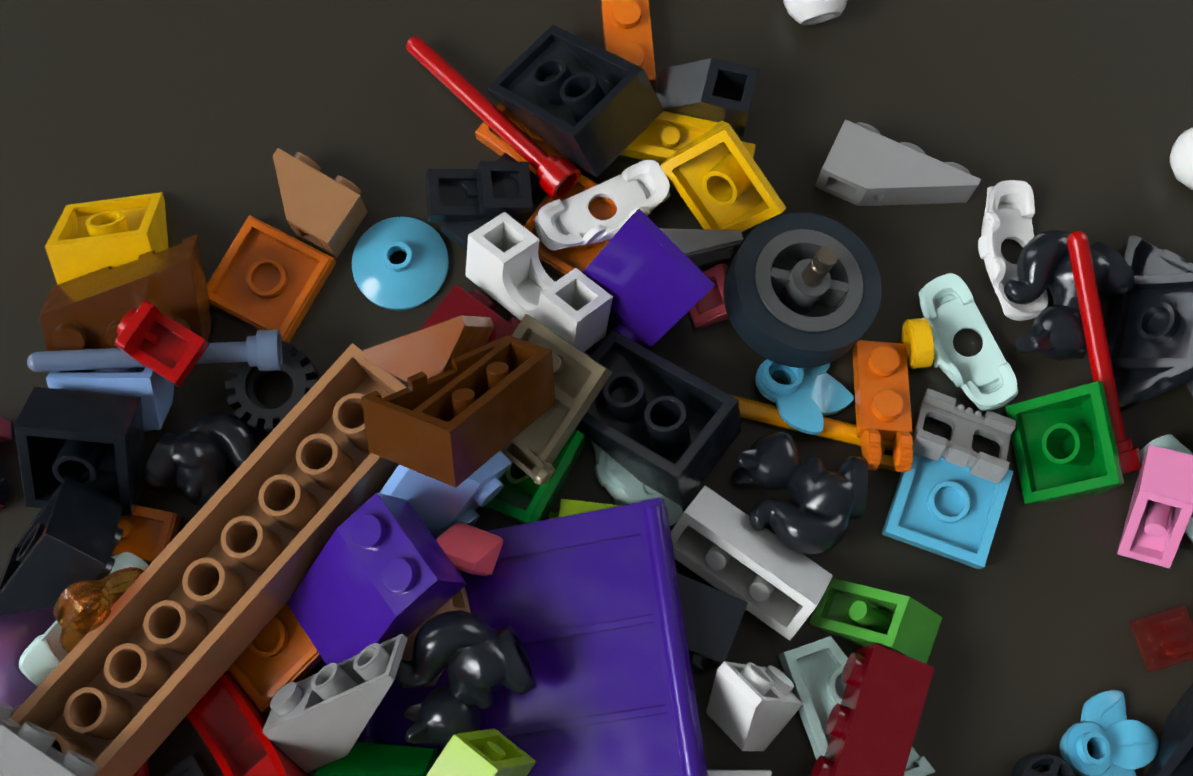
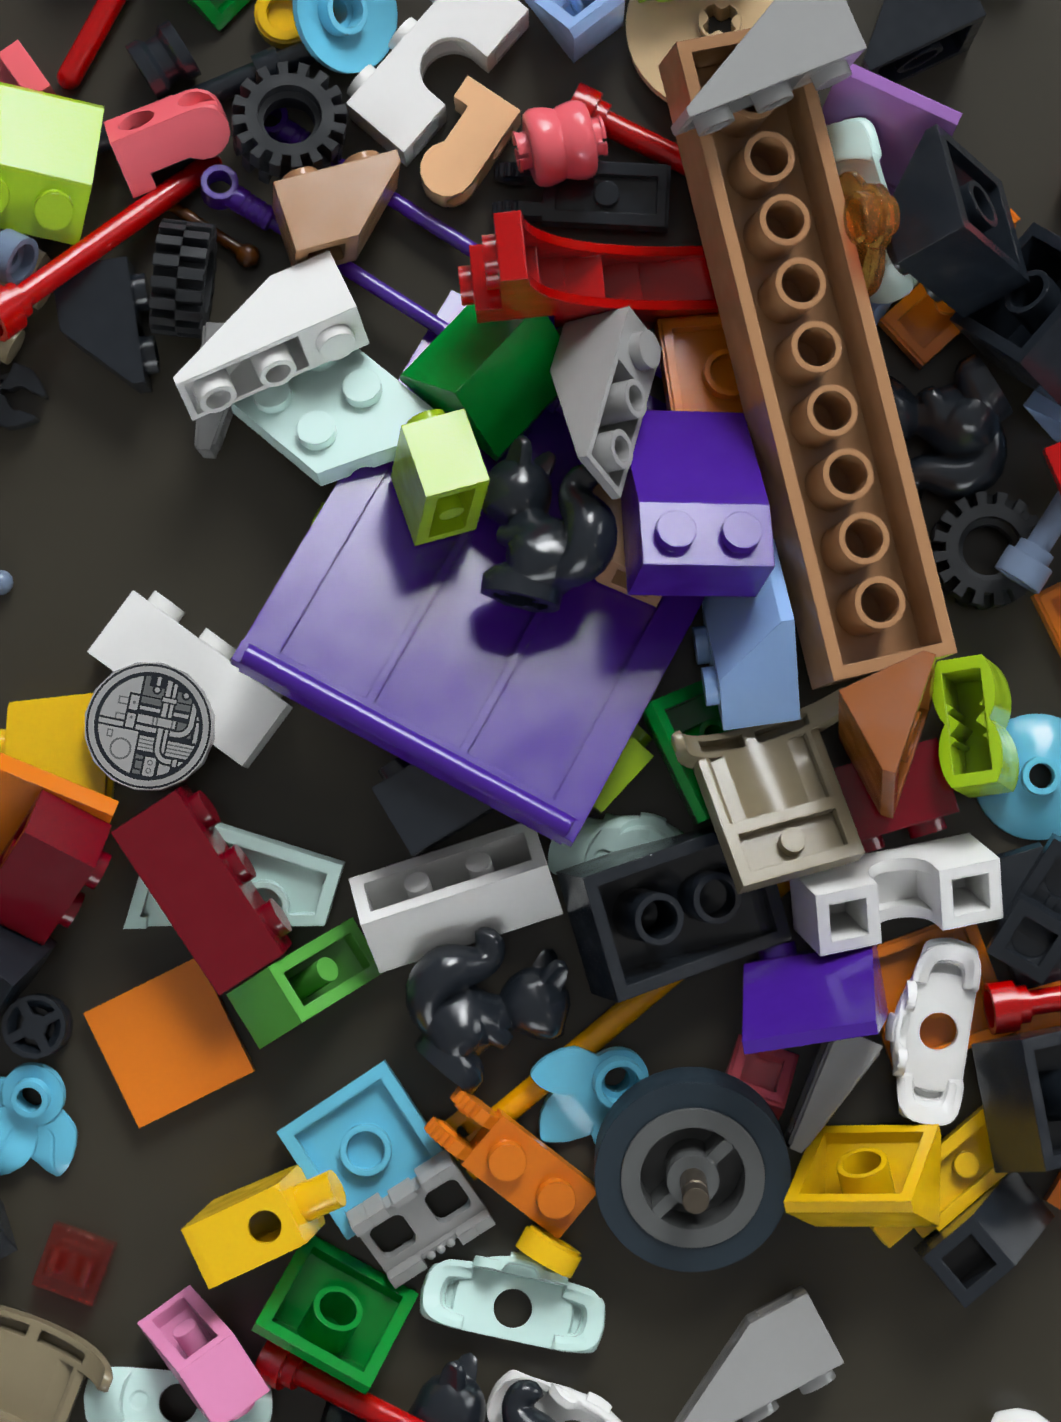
camera: 130 degrees right, 10 degrees up
(406, 303) = (974, 743): none -> lime brick
(464, 414) = (793, 710): reddish brown wedge -> none
(471, 548) = (665, 626): coral slope -> none
(751, 703) = (316, 795): white slope -> none
(983, 684) = (169, 1042): none -> orange tile
(1054, 530) = (260, 1222): none -> yellow torso

